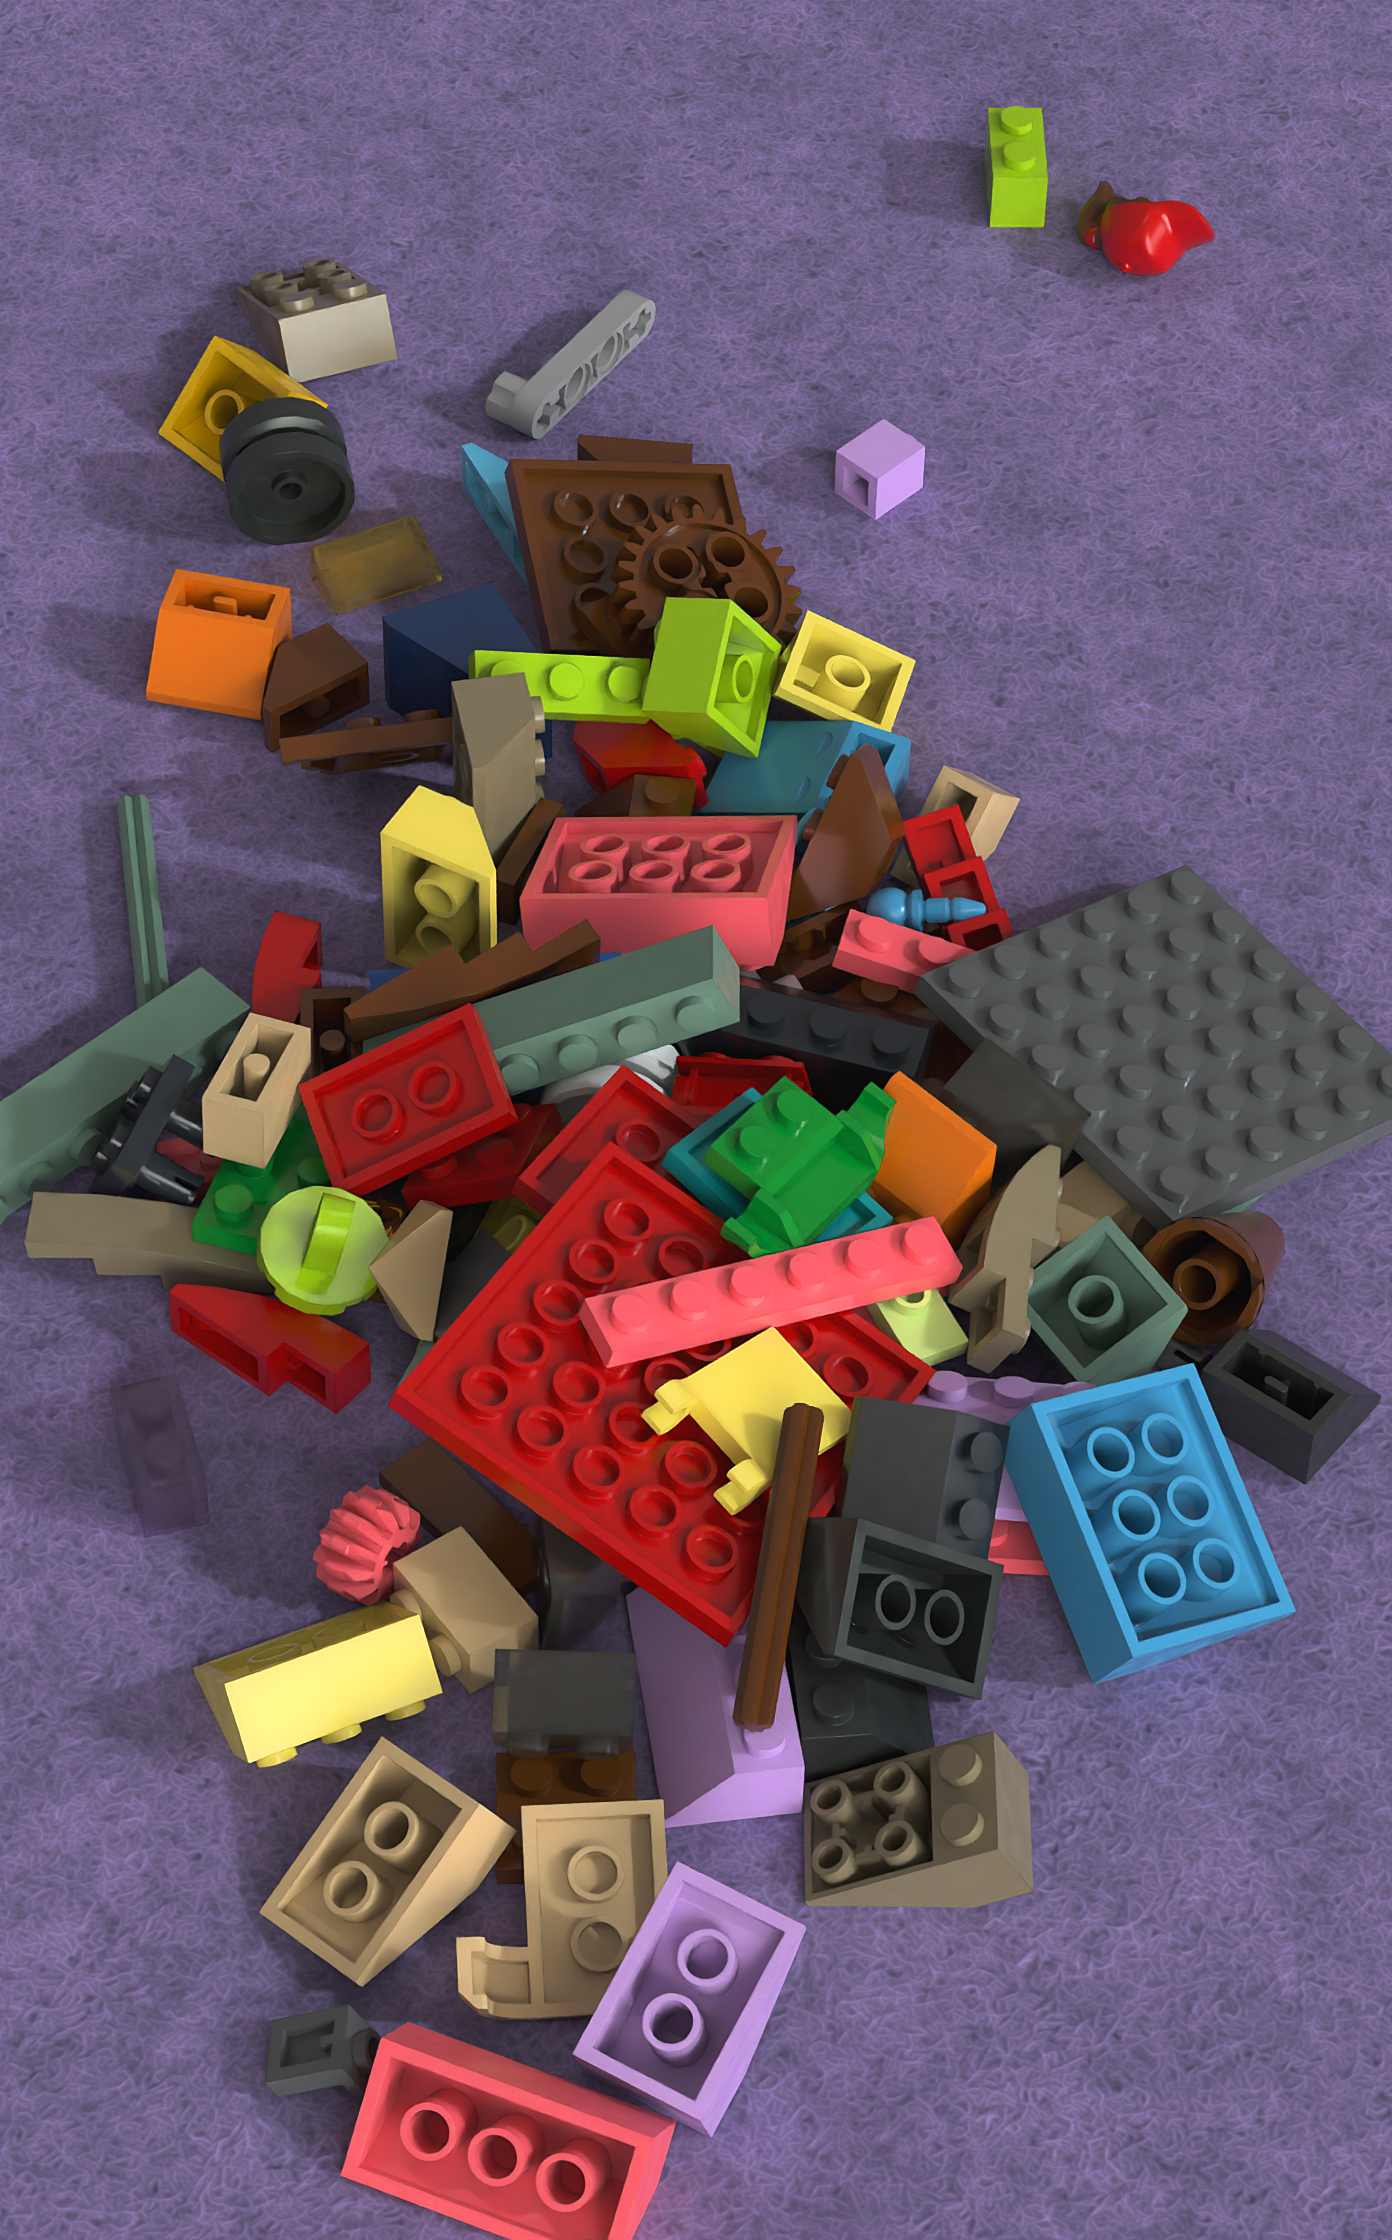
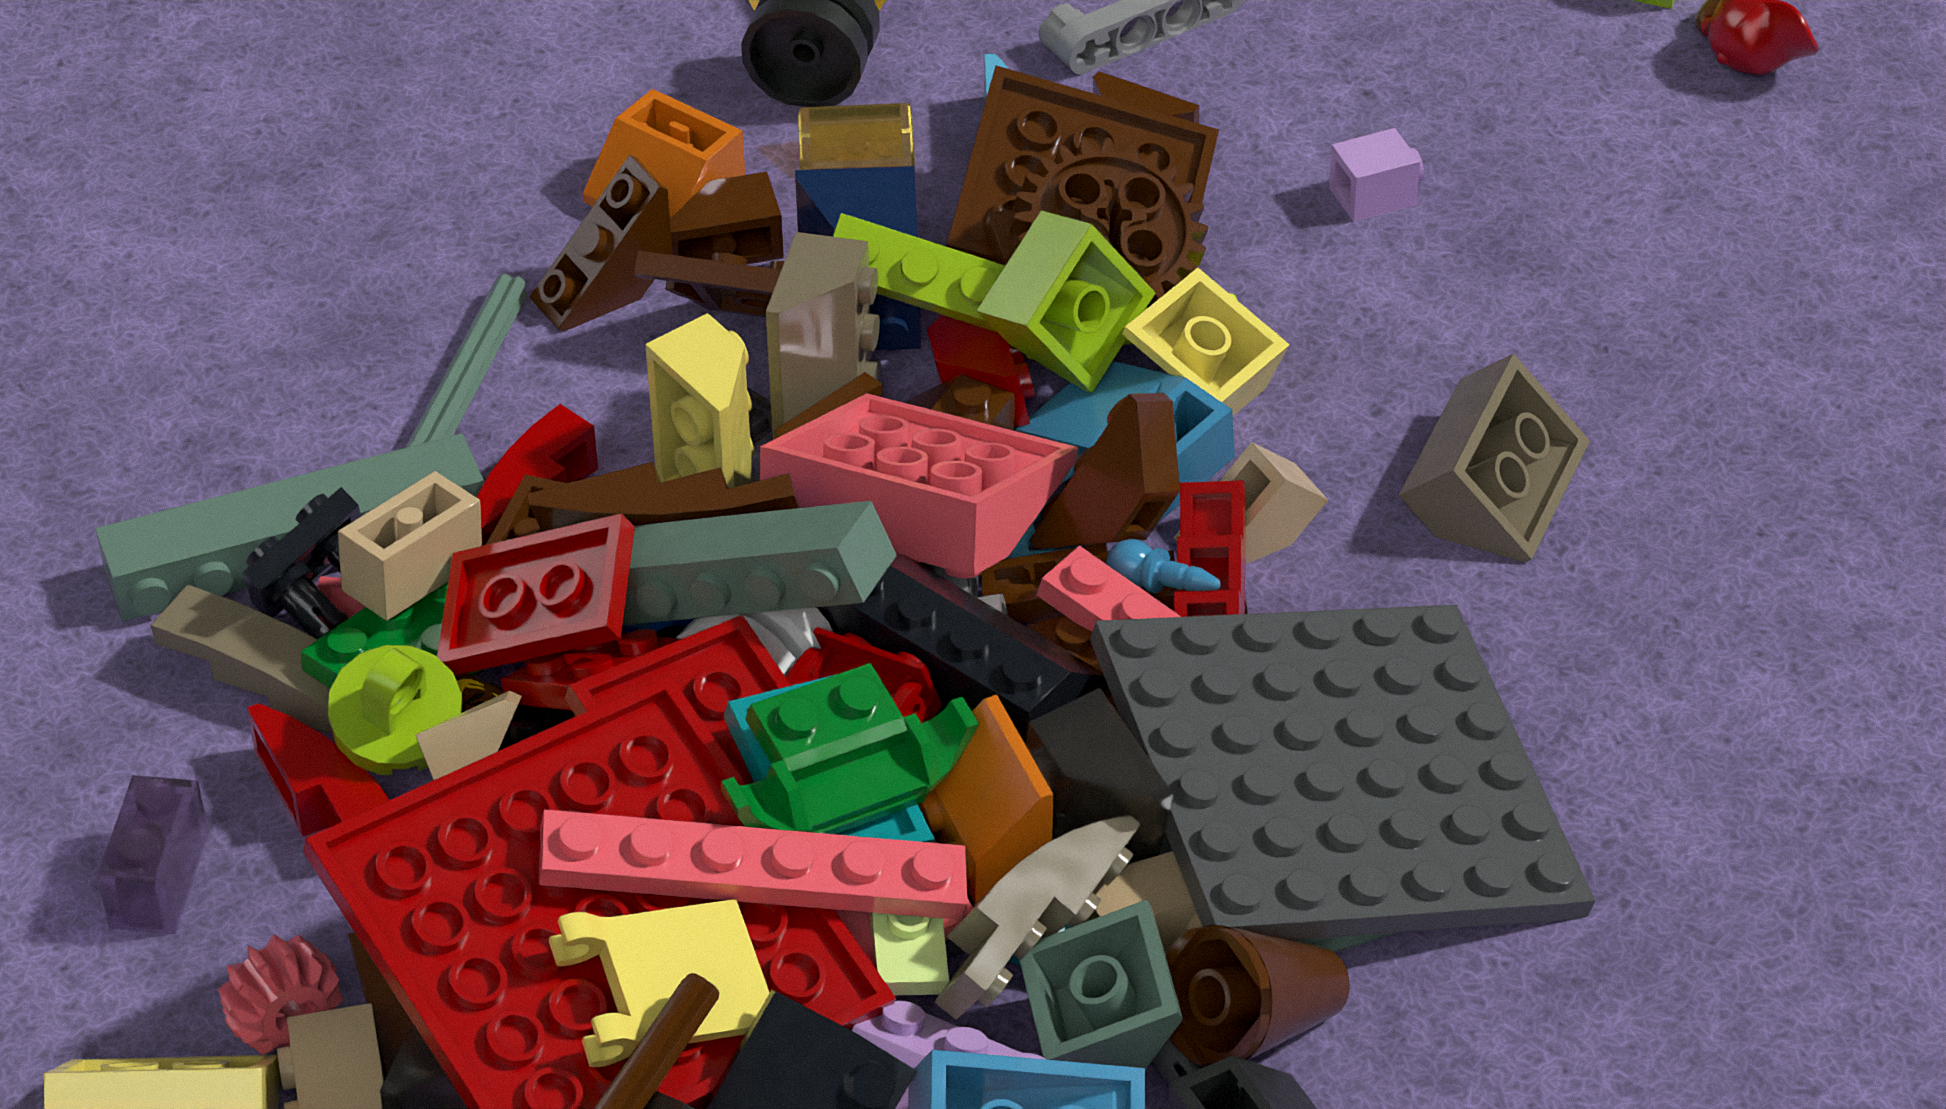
camera: 25 degrees right, 5 degrees down
(223, 744) = (599, 260): none -> reddish brown slope
(1139, 720) = (1496, 463): none -> dark tan slope

